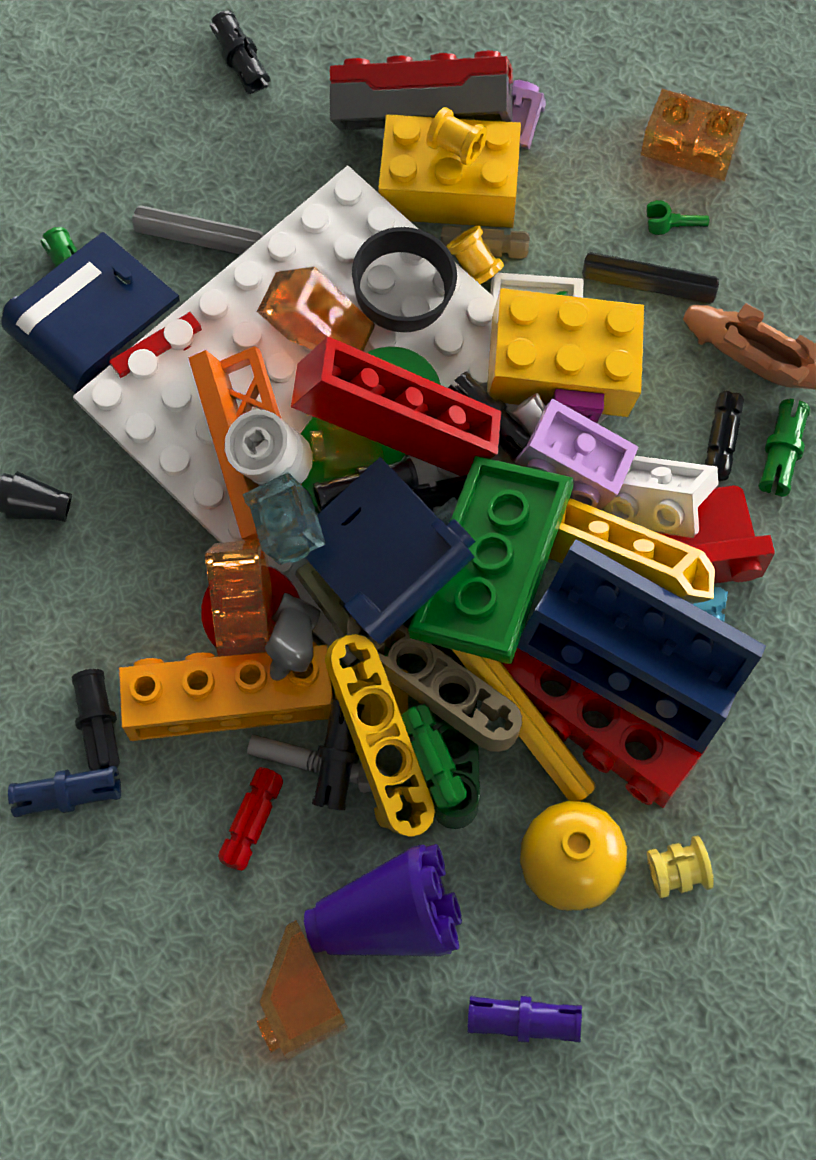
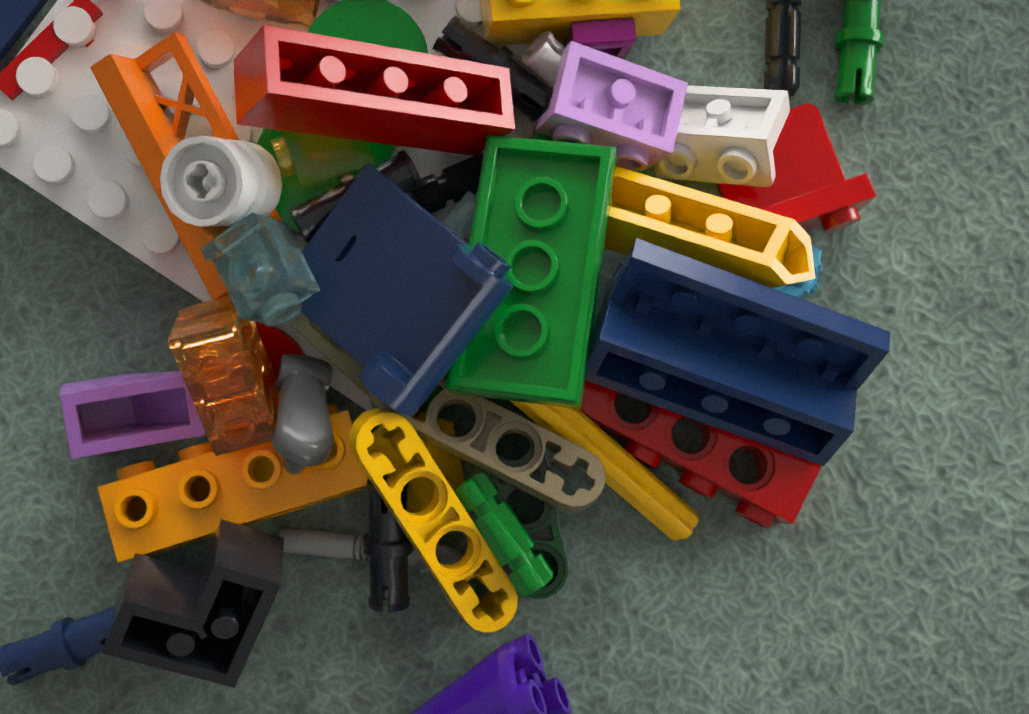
camera: 15 degrees left, 15 degrees up
(95, 719) = (85, 546): black axle -> none
(157, 617) = (127, 412): none -> medium lavender slope
(178, 782) = (202, 618): none -> black brick
(250, 819) = (299, 632): red axle -> none
(573, 856) = (687, 605): yellow cylinder -> none
(680, 867) = (820, 611): light yellow bush -> none

